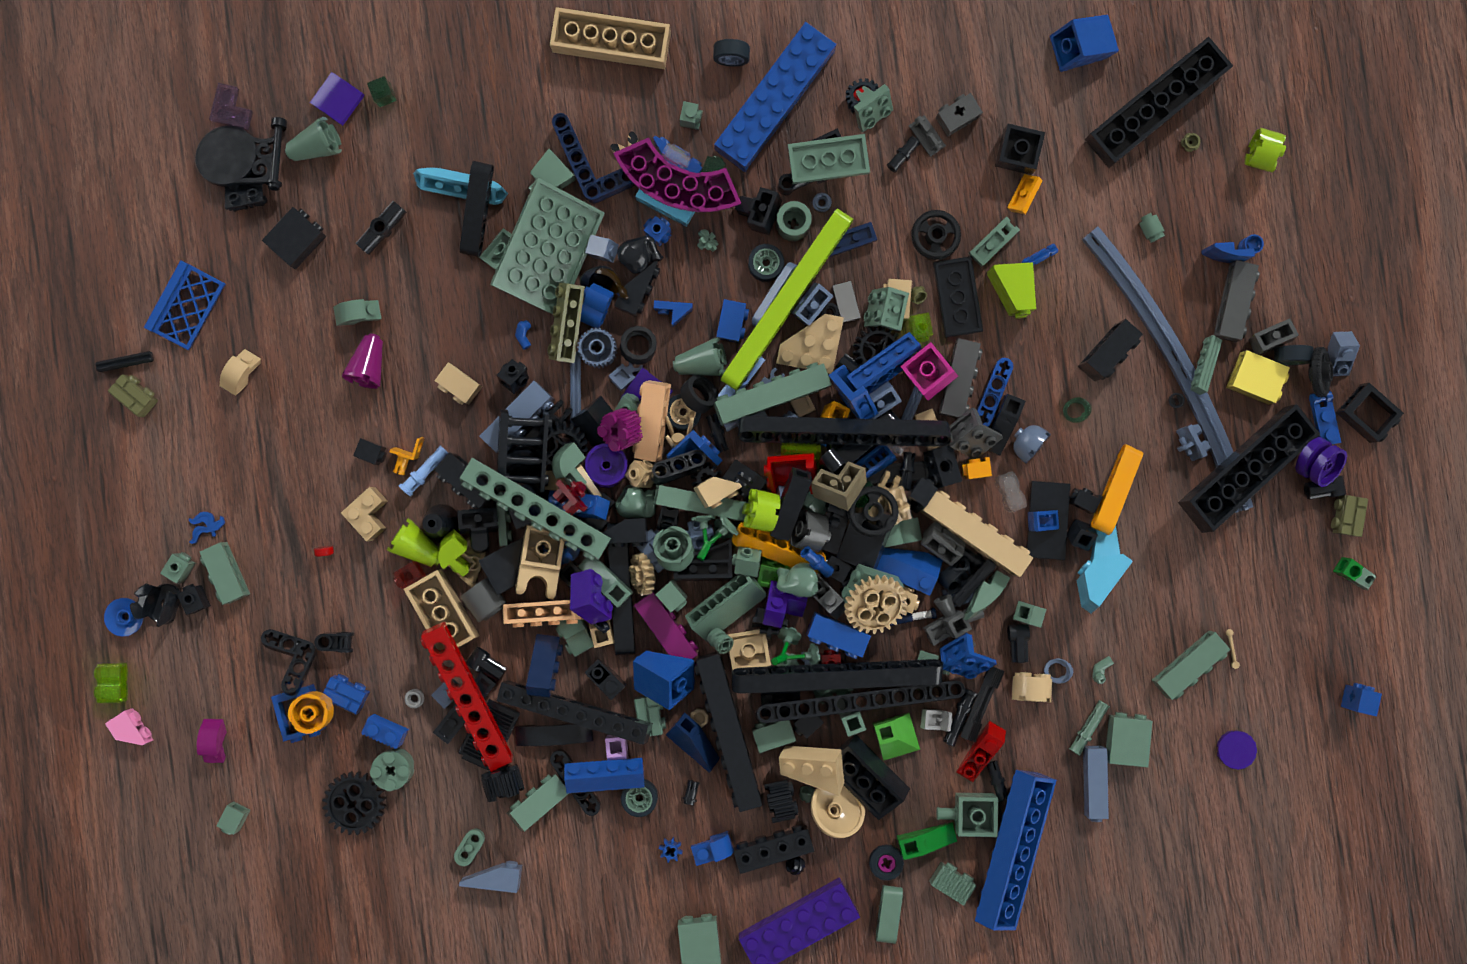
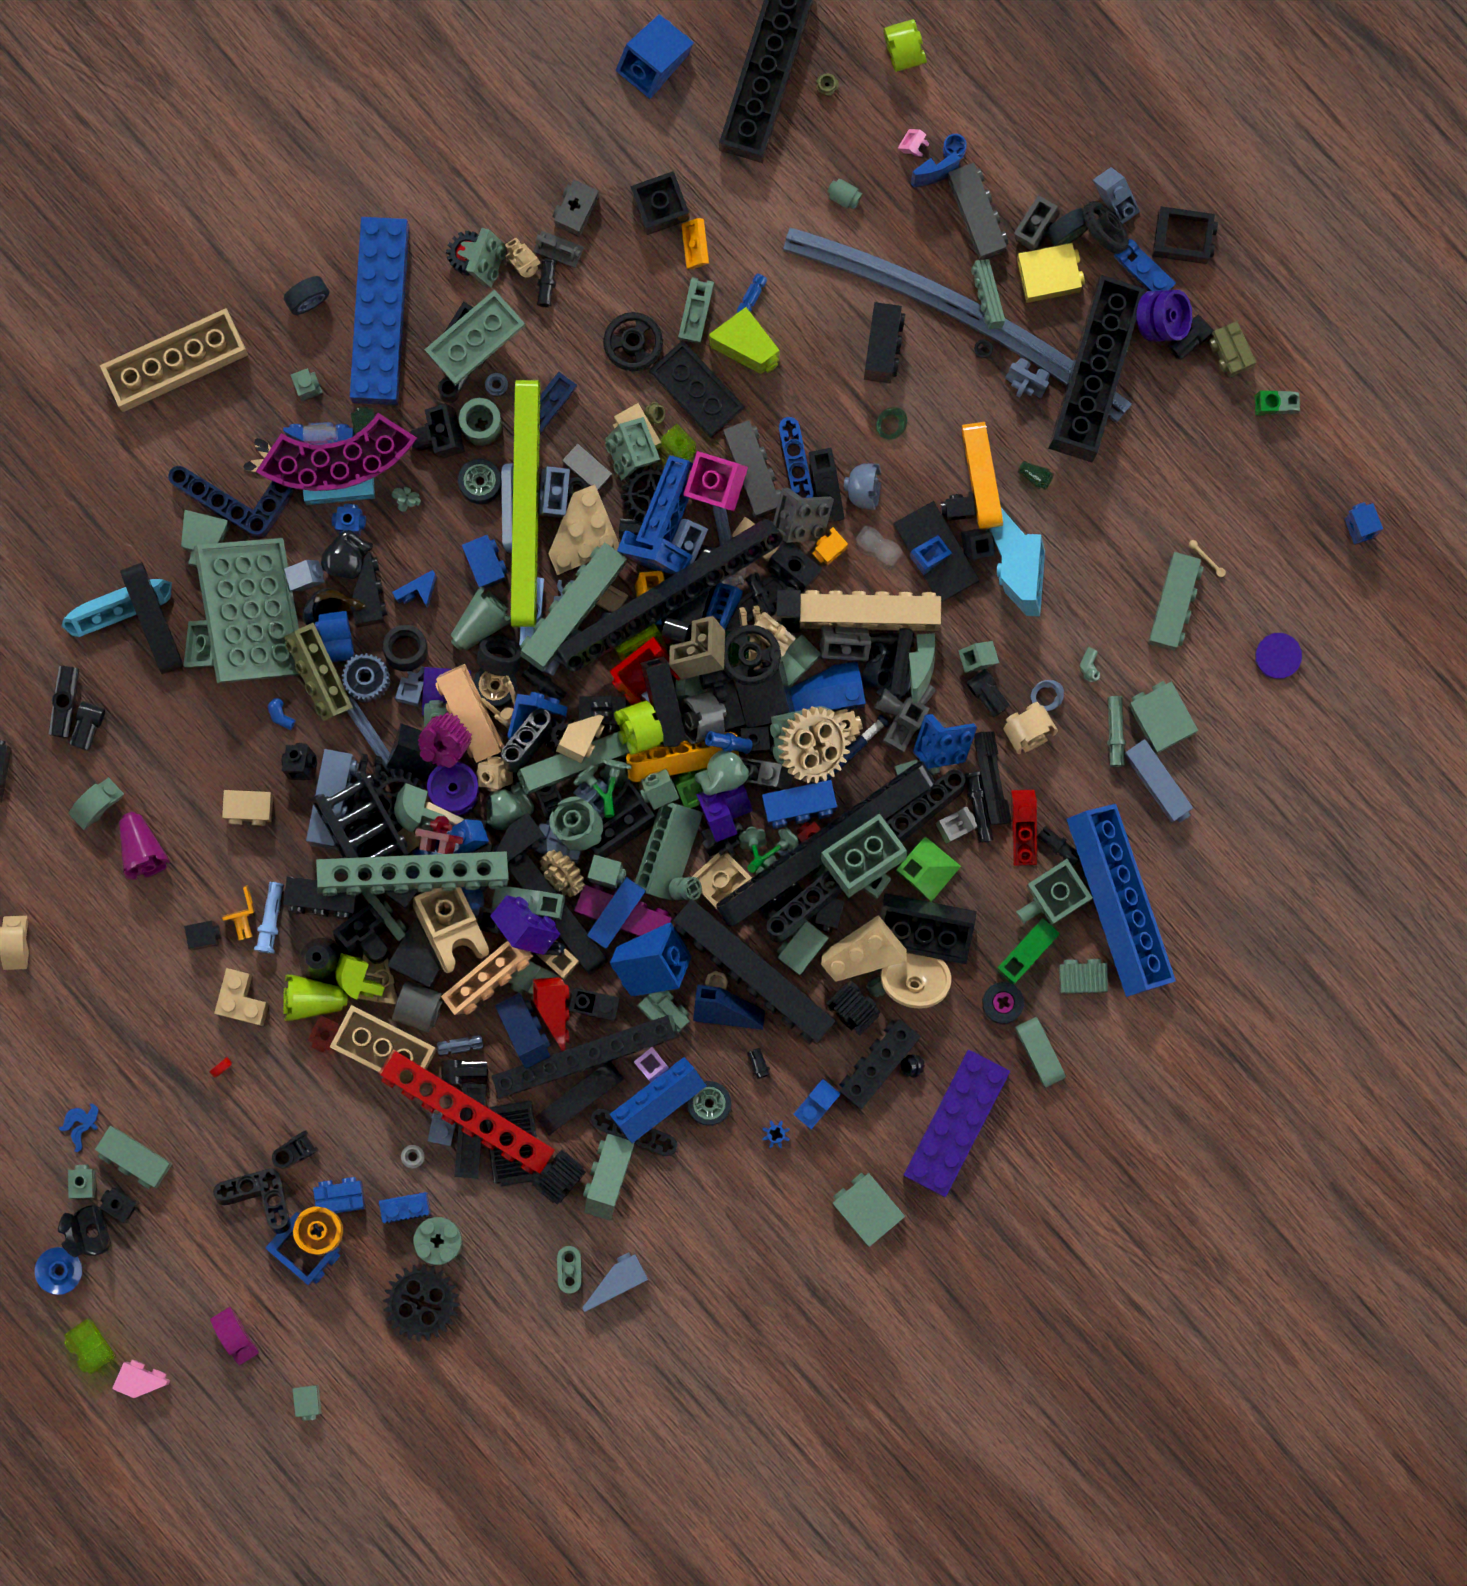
camera: 35 degrees left, 5 degrees down
(390, 251) = (88, 720): none -> black piece
(496, 644) = (460, 1045): none -> sand blue axle
(574, 659) = (549, 998): none -> red slope
(661, 627) = (616, 912): none -> blue tile
(858, 706) = (864, 855): none -> sand green brick
(898, 125) = (522, 258): none -> tan hips
(1153, 512) = (1037, 475): none -> clear green cone
(1223, 222) = (912, 141): none -> bright pink tile

